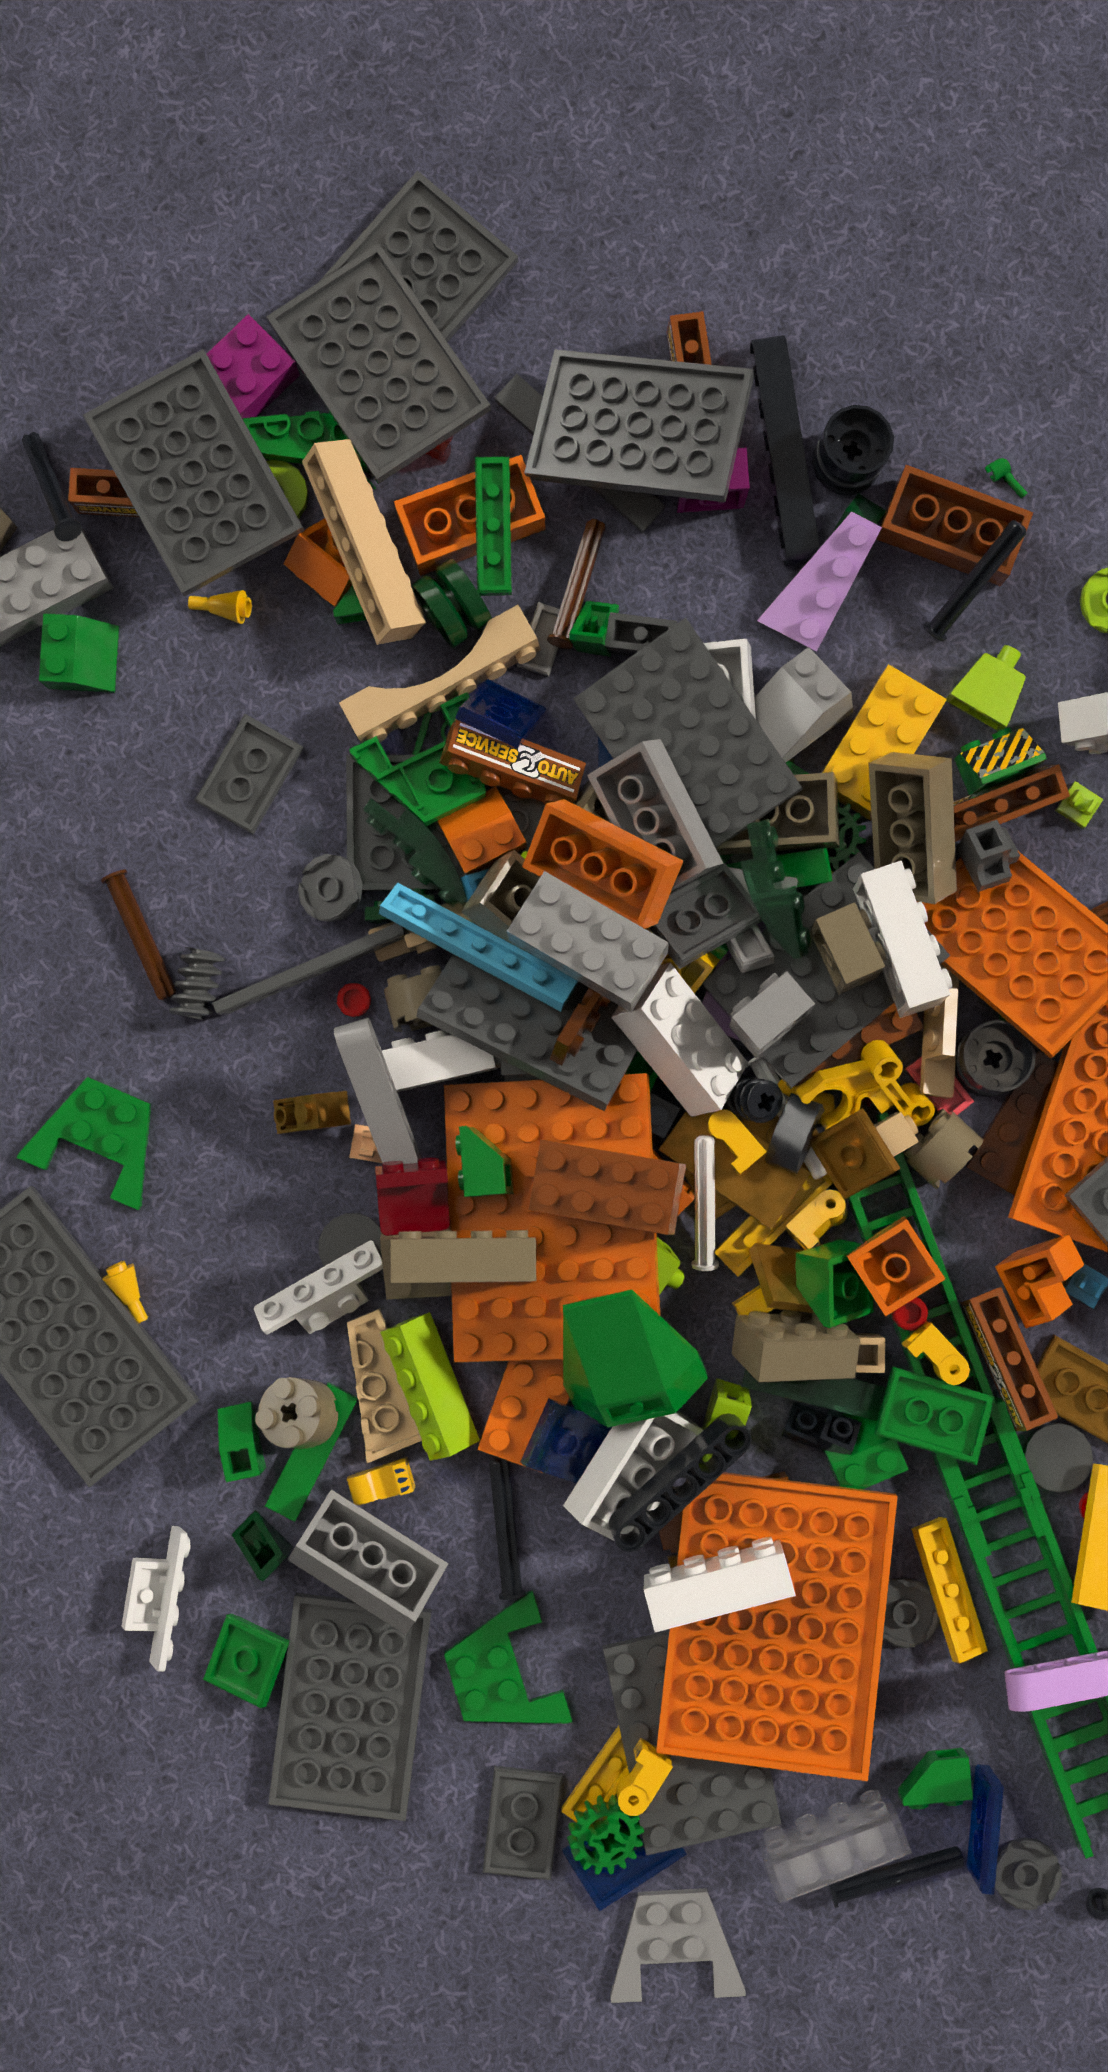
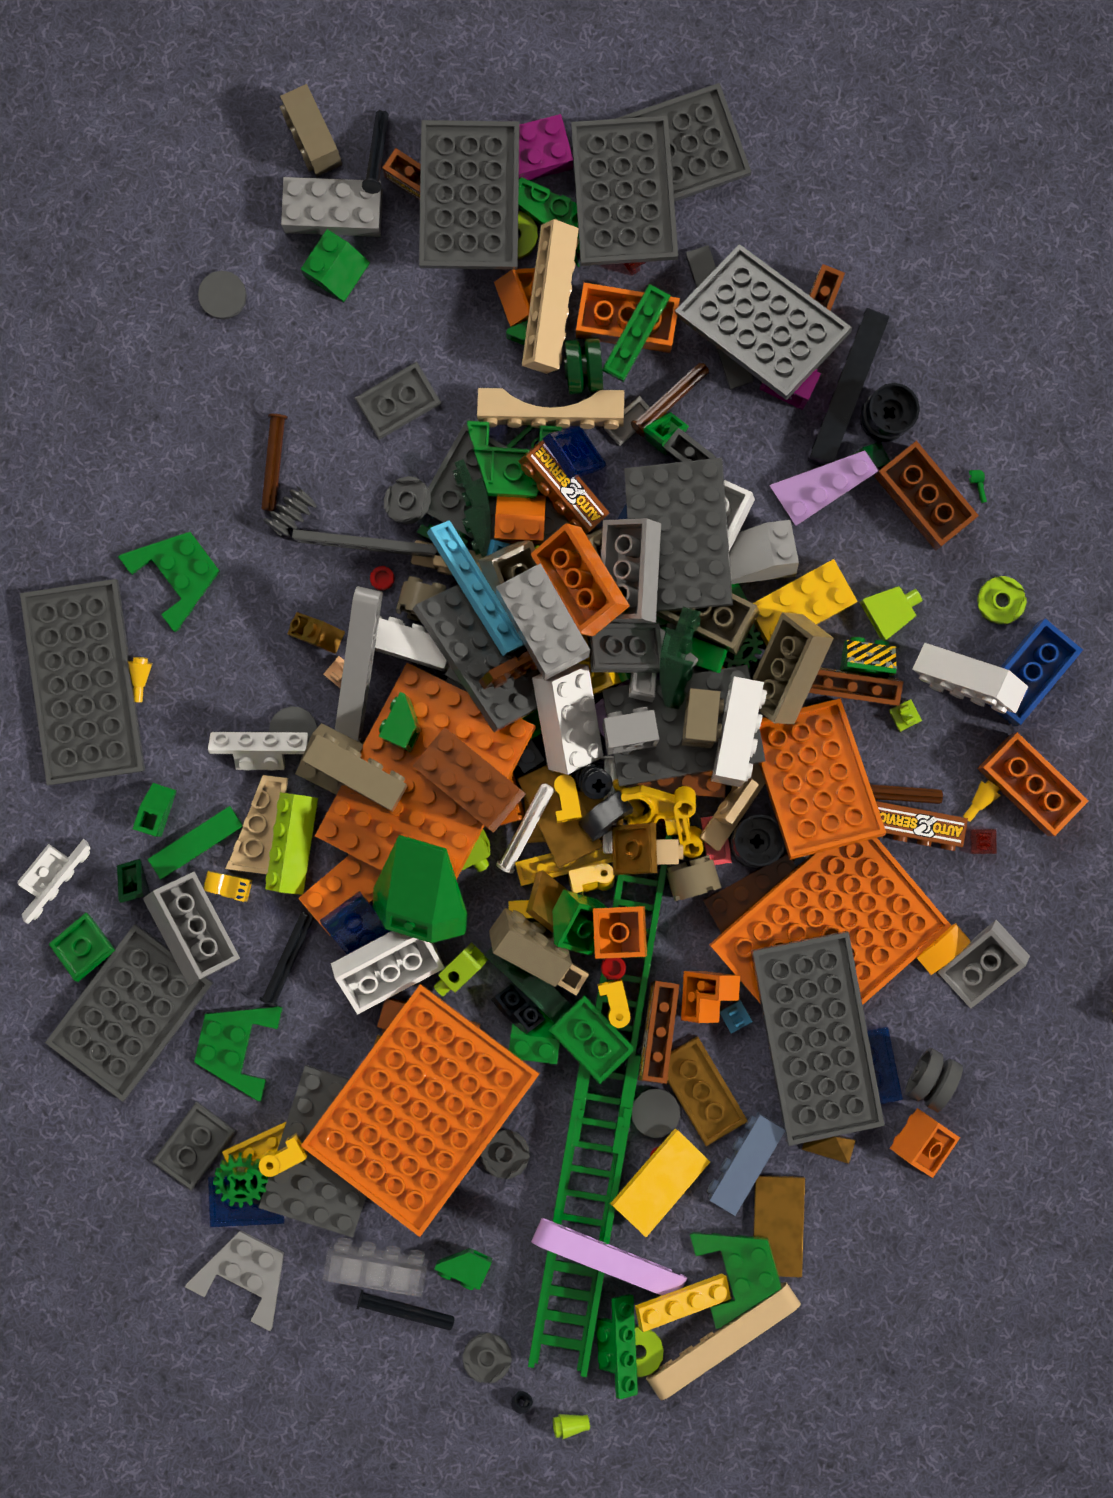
camera: 30 degrees right, 0 degrees up
(231, 605) = (446, 289): yellow cone -> none
(297, 1413) = (200, 812): dark tan brick -> none
(412, 1196) = (347, 718): dark red bracket -> none
(675, 1499) = (401, 996): black beam -> none
(717, 1584) = (396, 1062): white brick -> none
(949, 1590) = (540, 1155): yellow plate -> none
(975, 580) = (917, 538): black axle -> none
(985, 1828) = (476, 1311): clear blue tile -> none
(987, 854) = (826, 712): dark grey brick -> none

